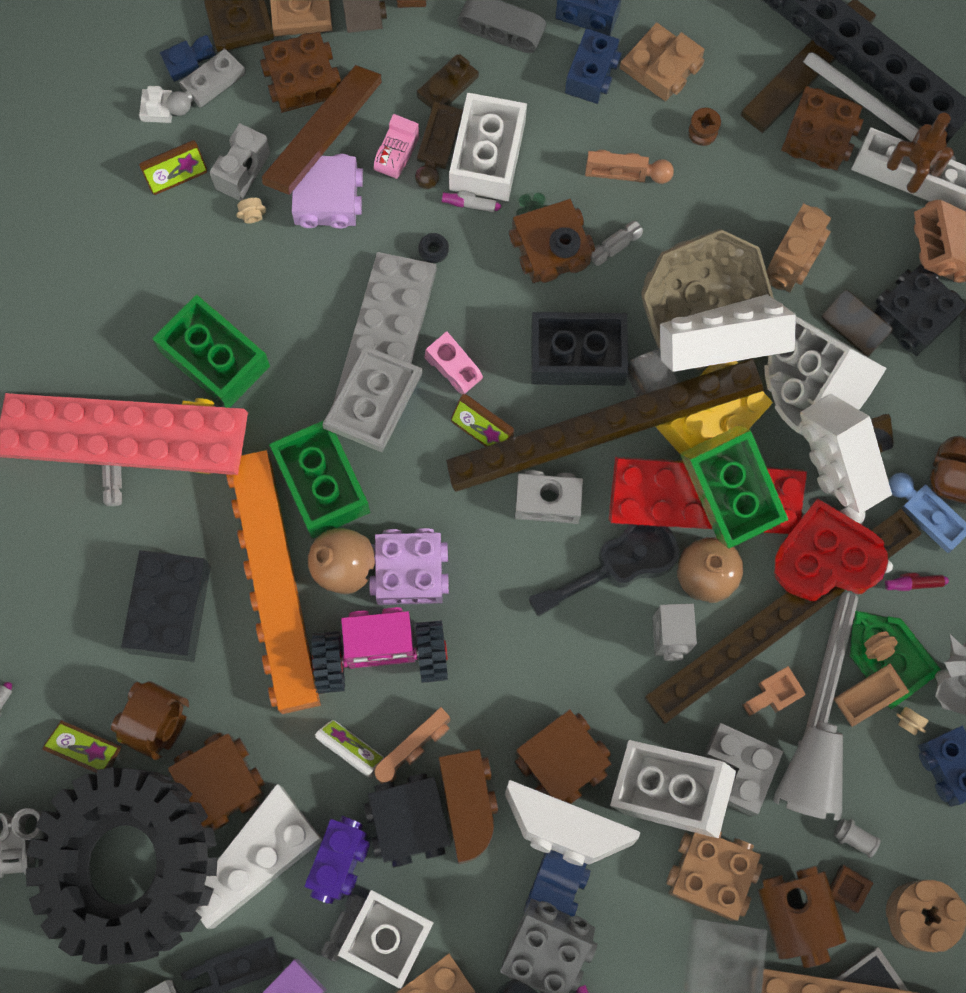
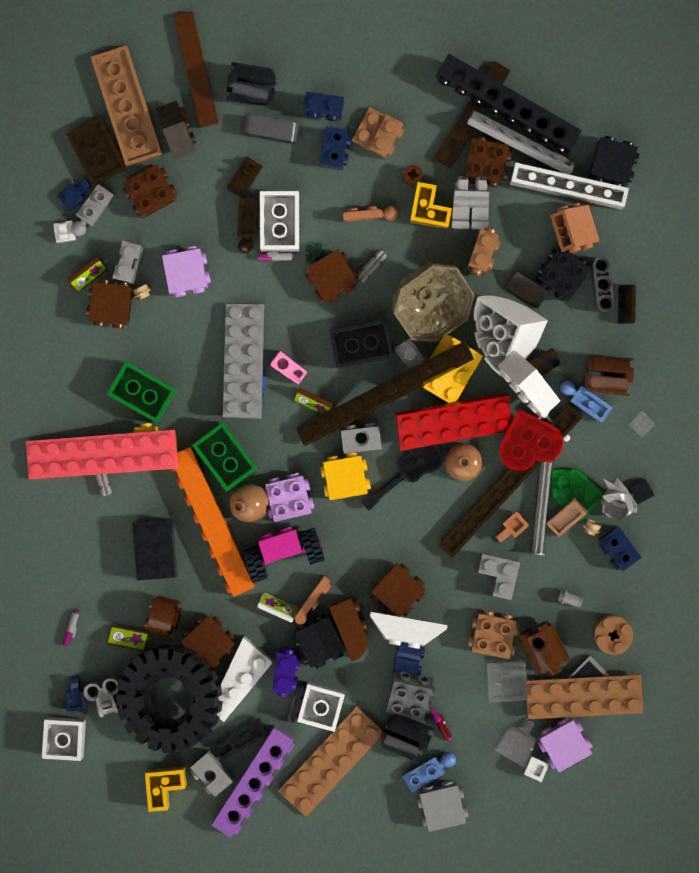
camera: 10 degrees left, 15 degrees up
(196, 214) = (109, 304): none -> reddish brown brick
(321, 130) = (175, 232): reddish brown tile -> none
(372, 398) = (246, 404): light grey tile -> none
(397, 146) = (222, 231): bright pink leg -> none
(430, 240) = (255, 288): black plate -> none
(510, 551) = (345, 476): none -> yellow brick
(560, 249) = (340, 288): black plate -> none
(673, 788) = (462, 596): white brick -> none
(674, 631) = (448, 506): light grey brick -> none
(721, 179) = (425, 212): none -> yellow brick
(728, 334) = (448, 327): white wedge -> none
(734, 486) = (466, 420): green brick -> none
(789, 167) = (471, 197): none -> light grey hips
(815, 774) = (539, 572): light grey cone -> none
(850, 888) = (569, 627): reddish brown tile -> none
(880, 646) = (567, 490): medium nougat plate -> none
(913, 581) = (583, 444): piece -> none
(925, 150) = (548, 183): reddish brown plant -> none

